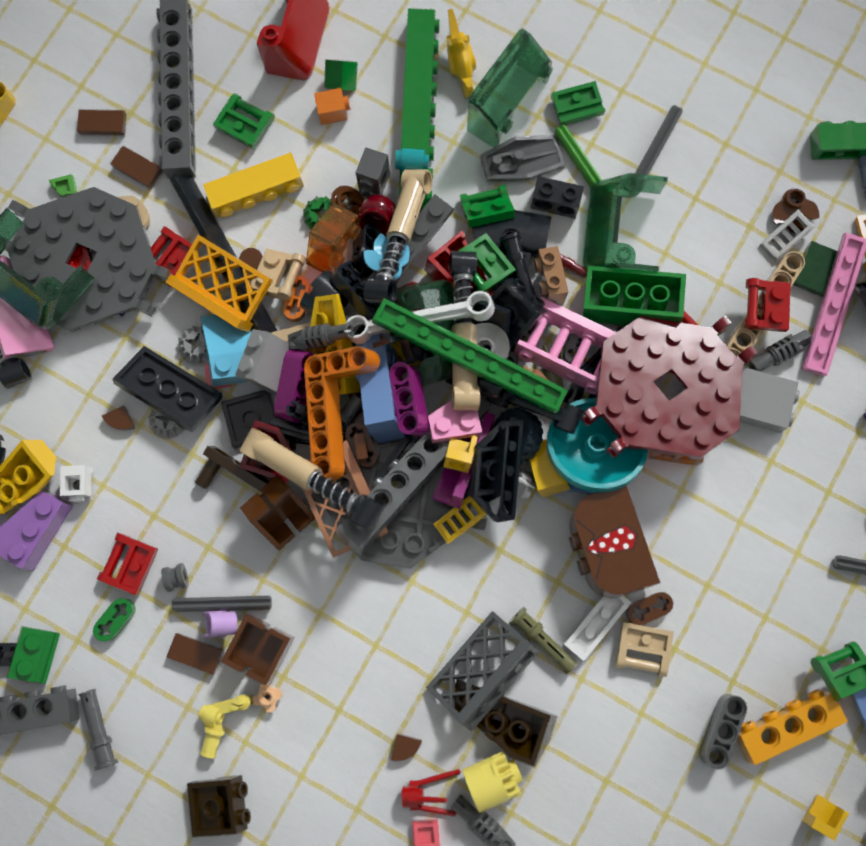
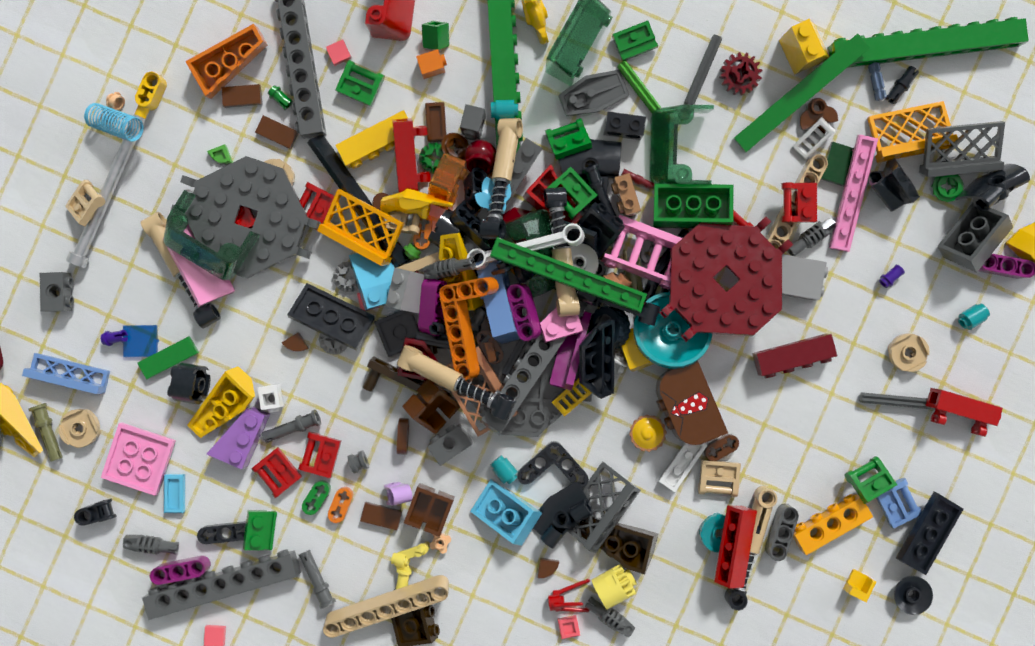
camera: 10 degrees left, 10 degrees up
(75, 578) = (281, 469): none -> red plate
(89, 77) = (223, 61): none -> orange wedge
(106, 521) = (300, 424): none -> dark grey pin
(142, 122) = (276, 94): none -> green pin
(149, 635) = (337, 503): none -> orange beam
(173, 784) = (376, 610): none -> tan beam
(222, 603) = (394, 477): dark grey axle -> none
(223, 84) = (338, 52): none -> coral tile
(237, 550) = (403, 436): none -> reddish brown beam
(279, 320) = (412, 251): none -> bright green plate
(280, 566) = (441, 452): none -> dark grey brick
(286, 202) = (405, 154): none -> red brick
(286, 259) = (411, 203): none -> yellow animal
(328, 172) = (435, 121): none -> reddish brown tile
(359, 666) = (506, 513): none -> medium azure slope
(362, 608) = (504, 470): none -> teal brick
(423, 601) = (550, 459): none -> black beam
(442, 661) = (567, 503): none -> black panel
(460, 454) = (568, 350): yellow panel -> none
(534, 632) = (636, 474): olive pin -> none
(554, 578) = (647, 433): none -> yellow piece
(624, 721) = (708, 533): none -> teal plate
(659, 742) = (735, 546): none -> red brick
(681, 746) = (764, 511): none -> tan piece
(714, 151) = (733, 72): none -> dark red gear
(752, 495) = (795, 354): none -> dark red brick
(775, 179) = (802, 92): none -> green tile
(781, 125) = (803, 46): none -> yellow slope

